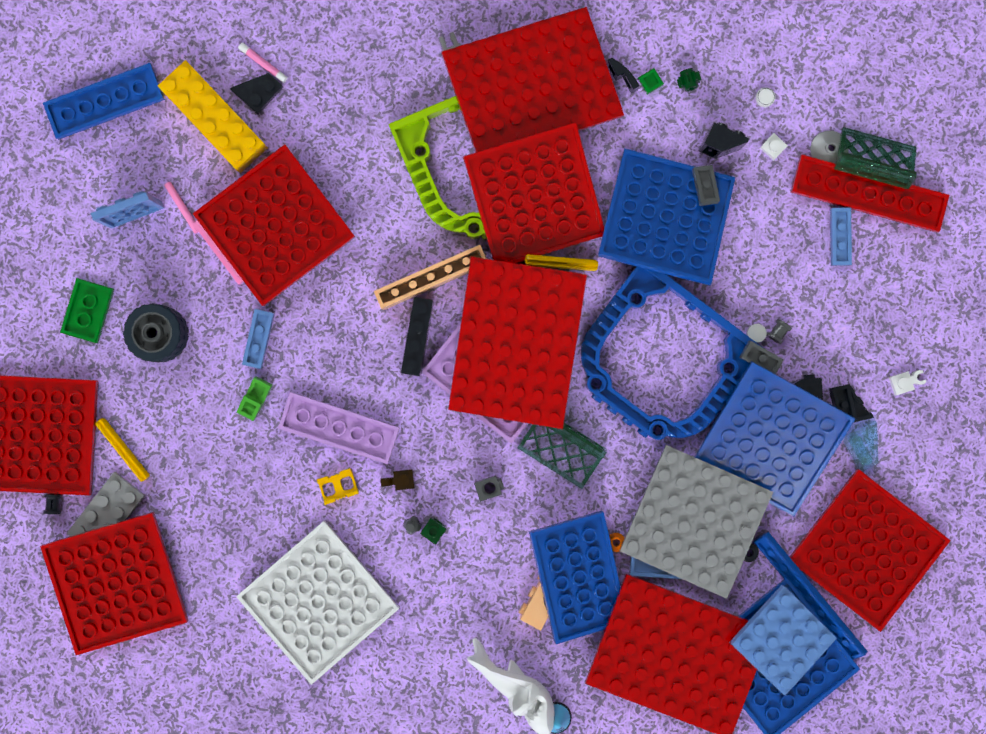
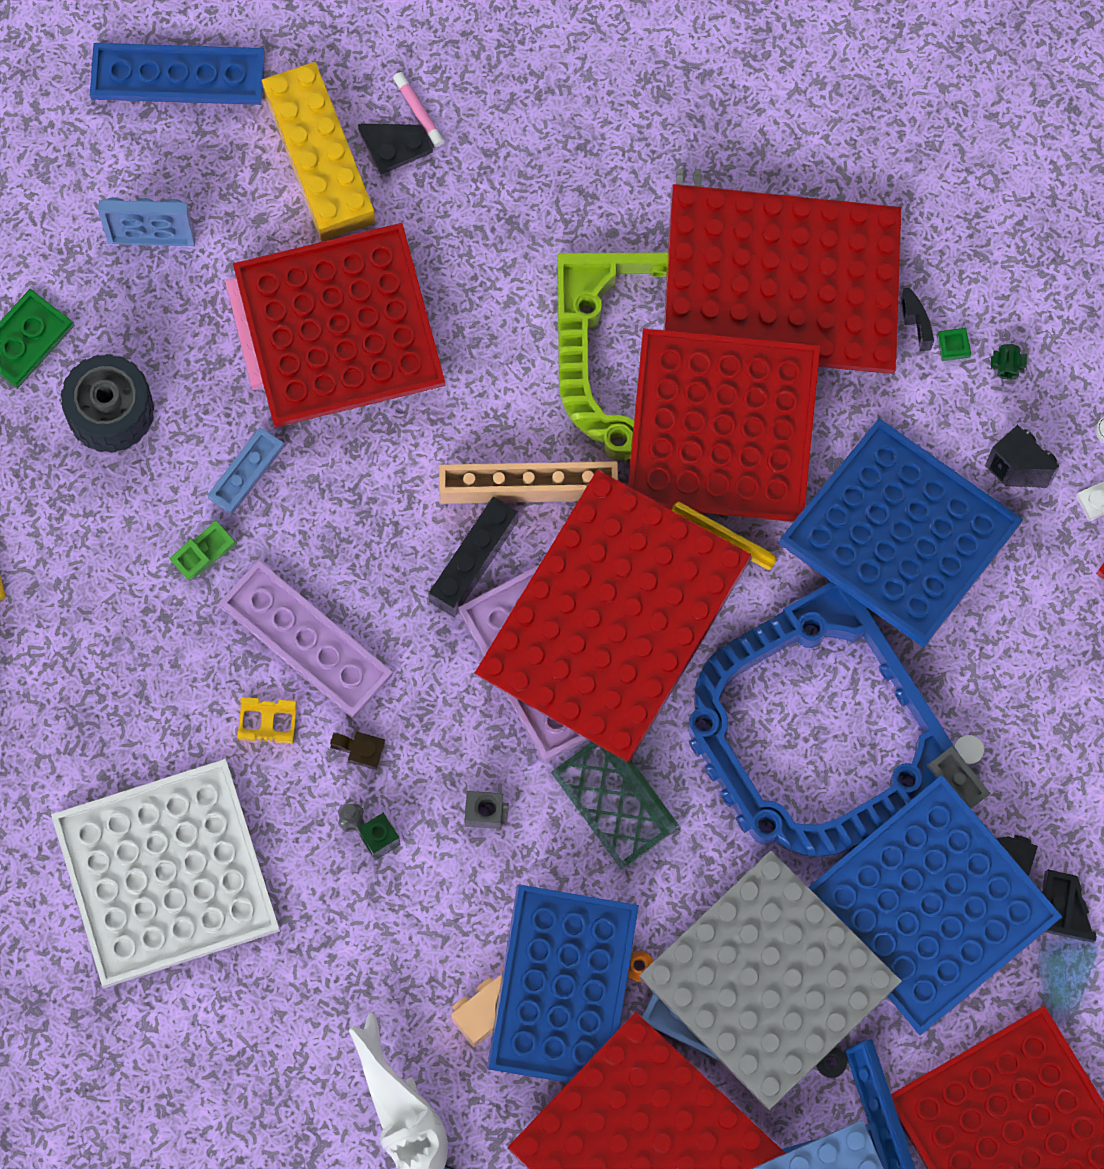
camera: 20 degrees right, 15 degrees down
(182, 207) = (219, 252): bright pink bar -> none
(706, 185) = (974, 510): dark grey plate -> none
(779, 331) = (1002, 760): dark grey bush -> none

